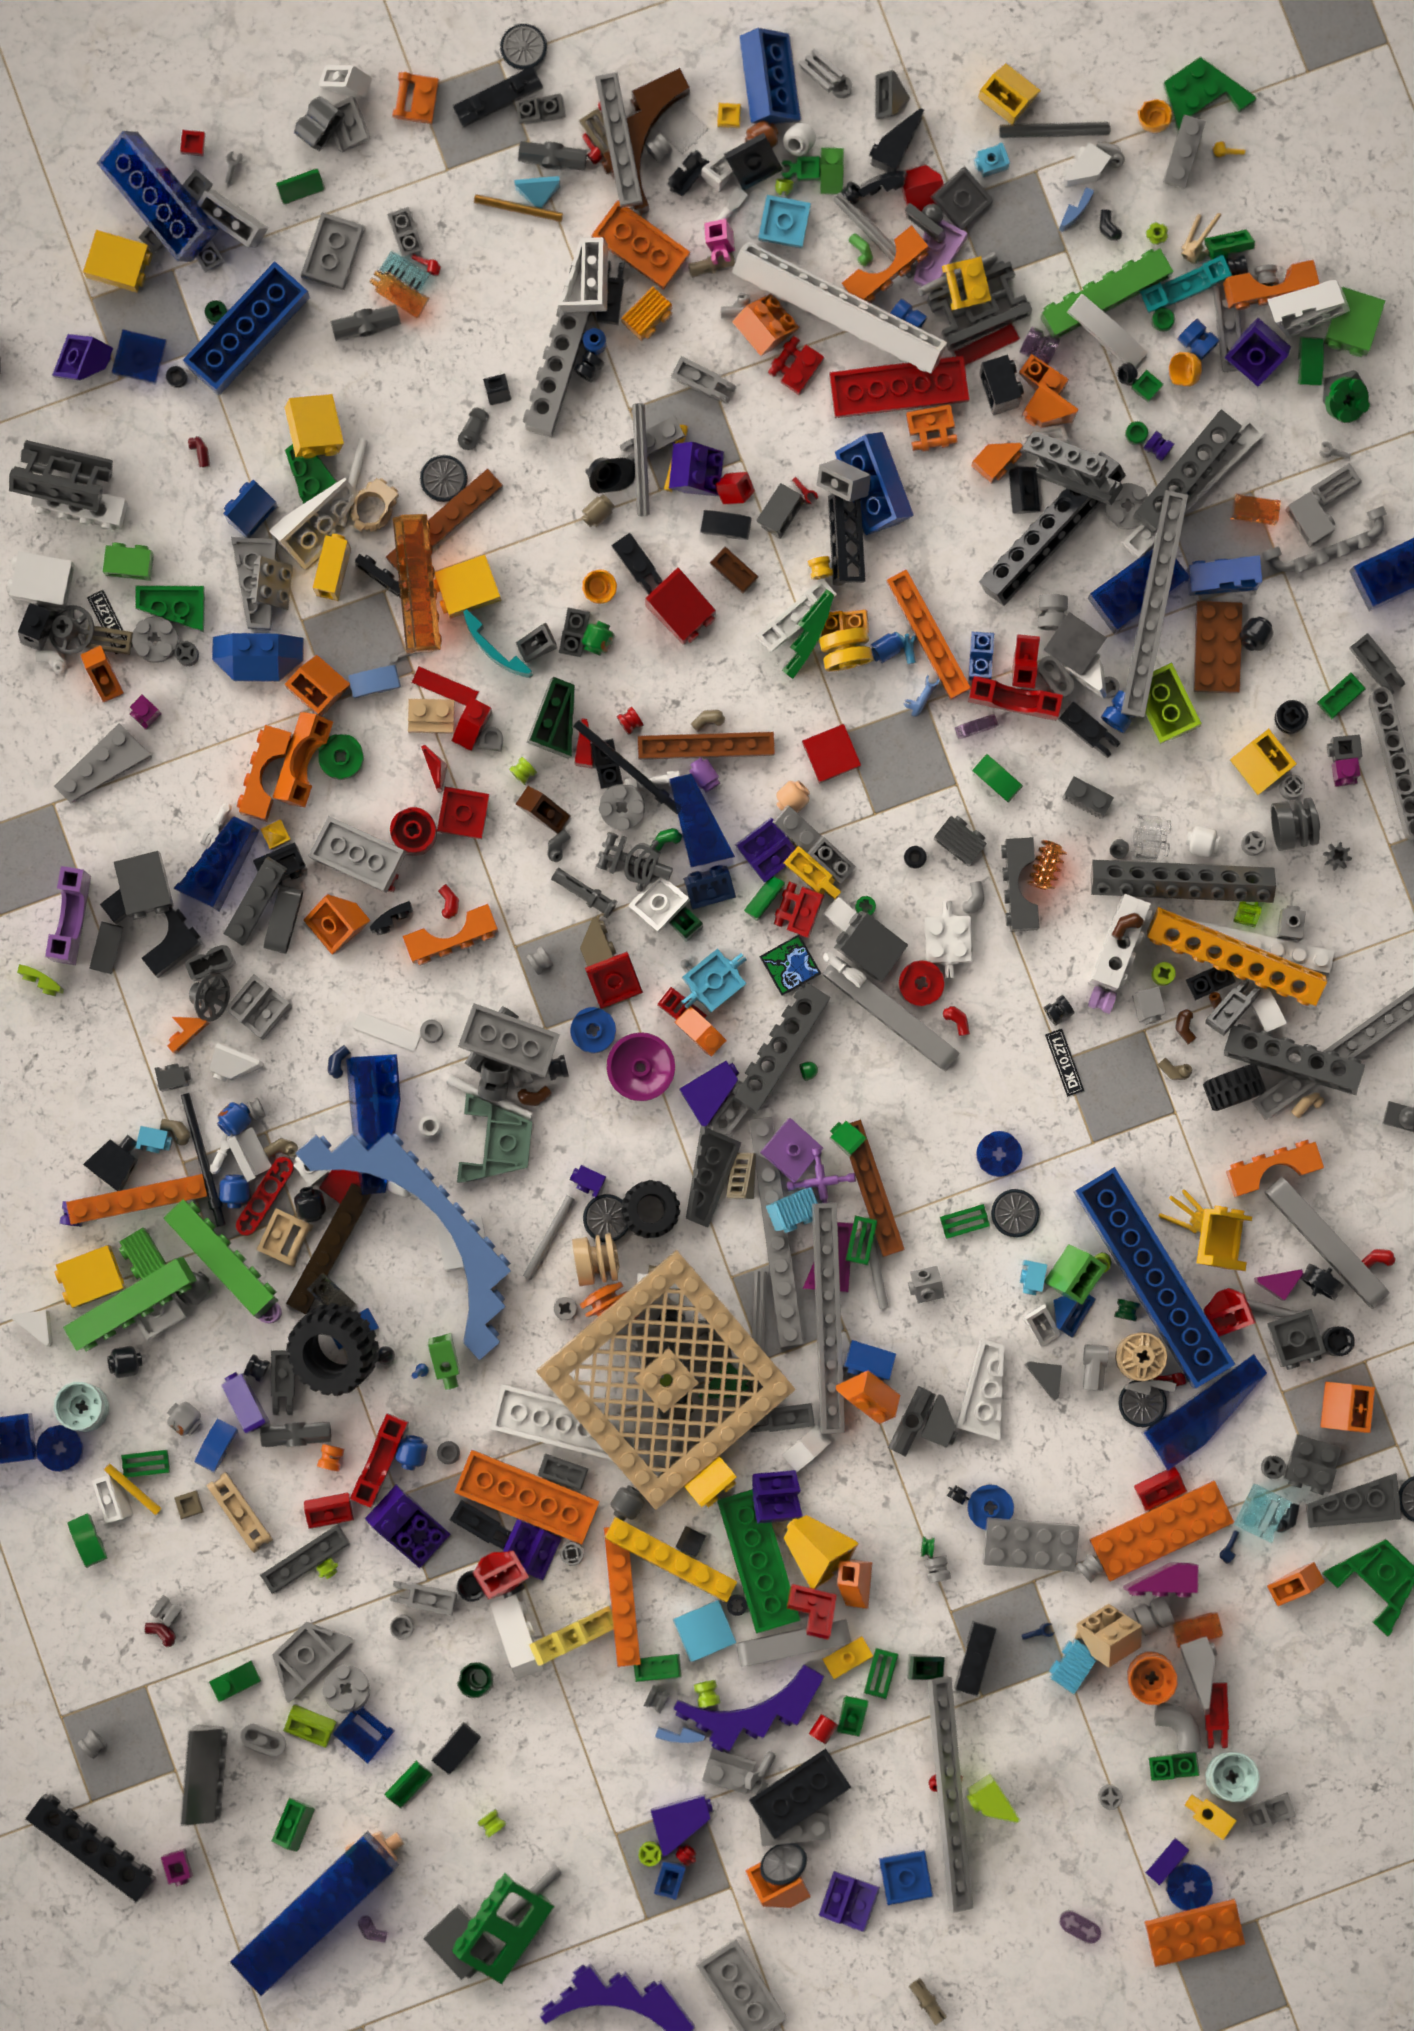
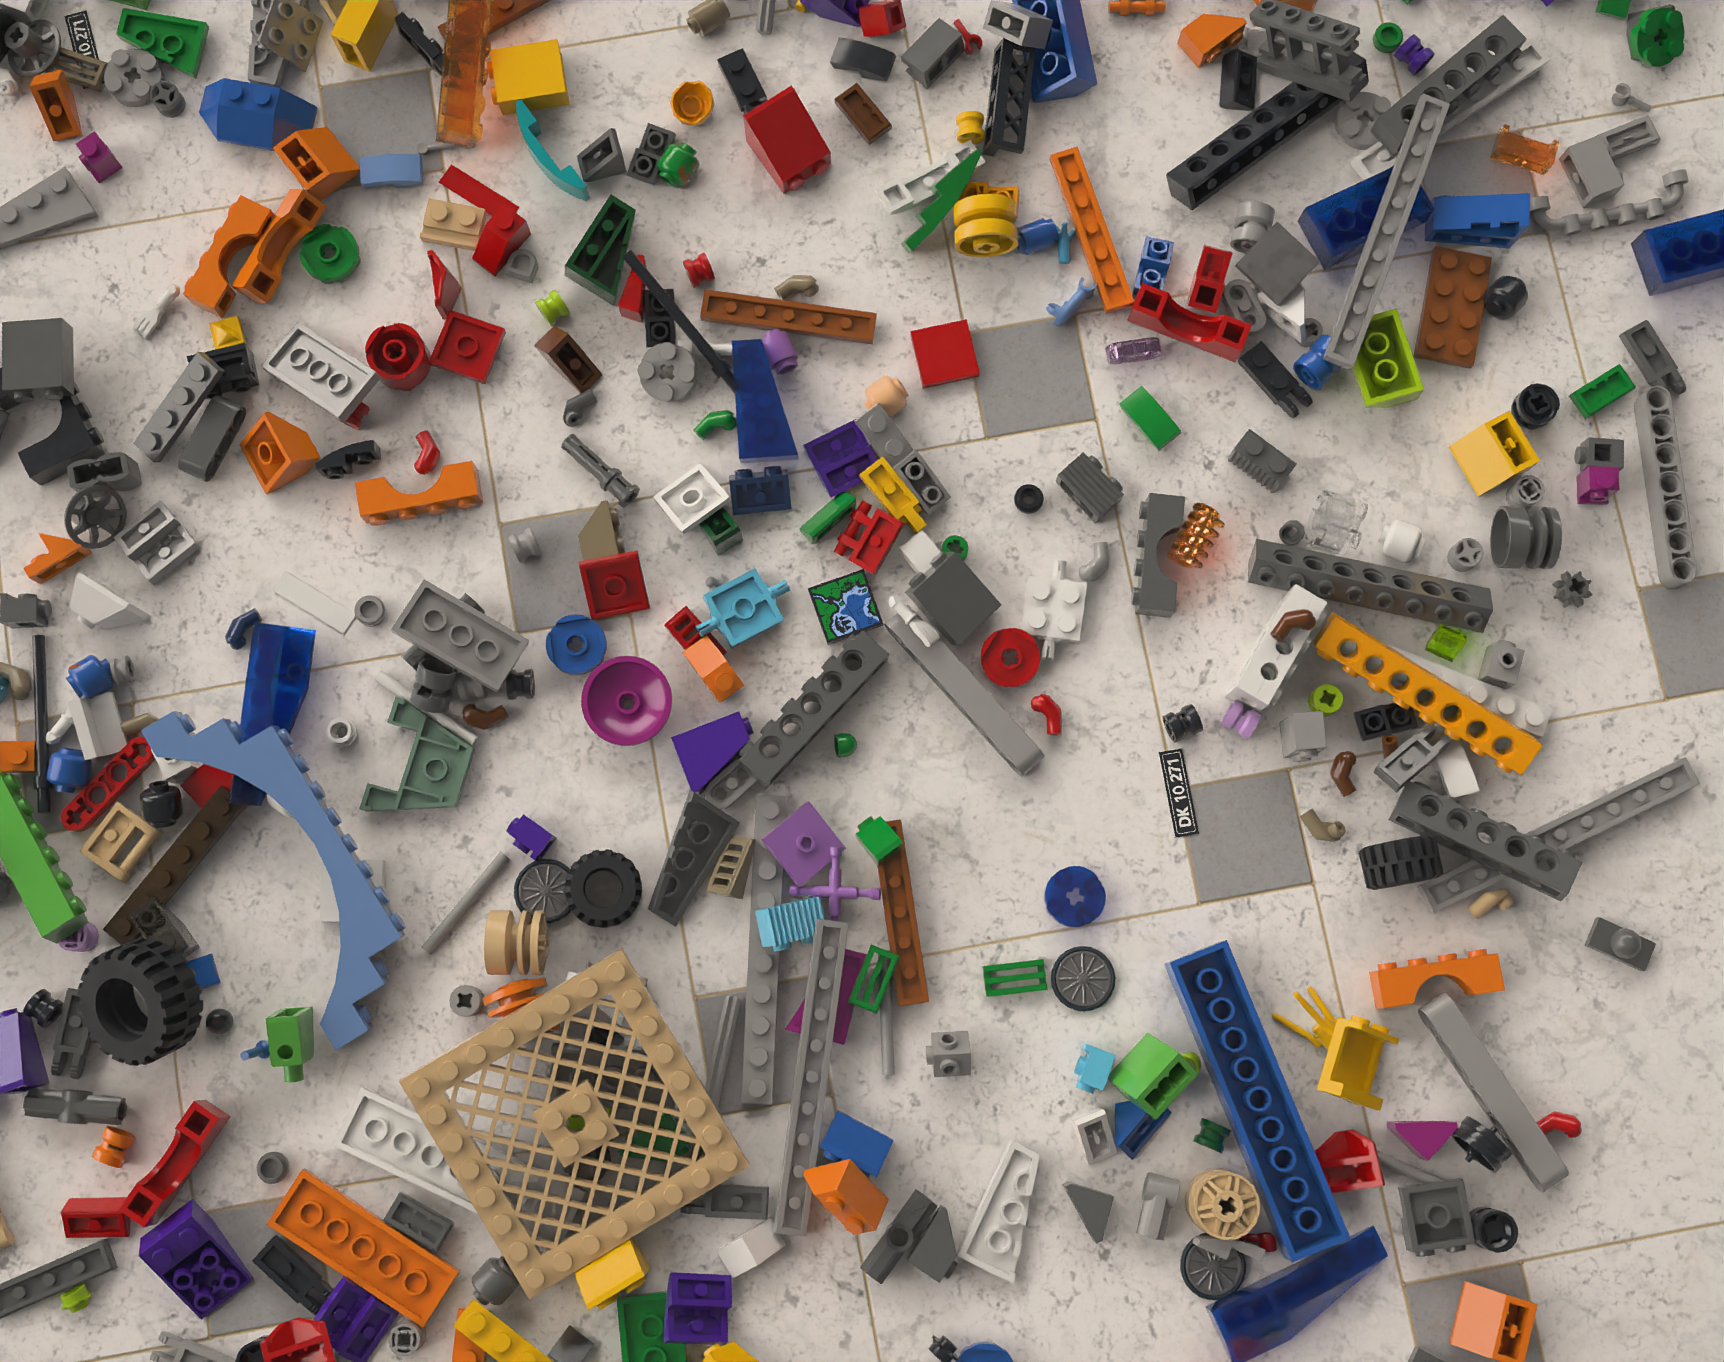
camera: 10 degrees right, 5 degrees down
(219, 865) = (146, 356): clear blue wedge -> none
(411, 1452) = (222, 1158): blue head -> none
(655, 868) = (688, 451): dark grey torso -> none

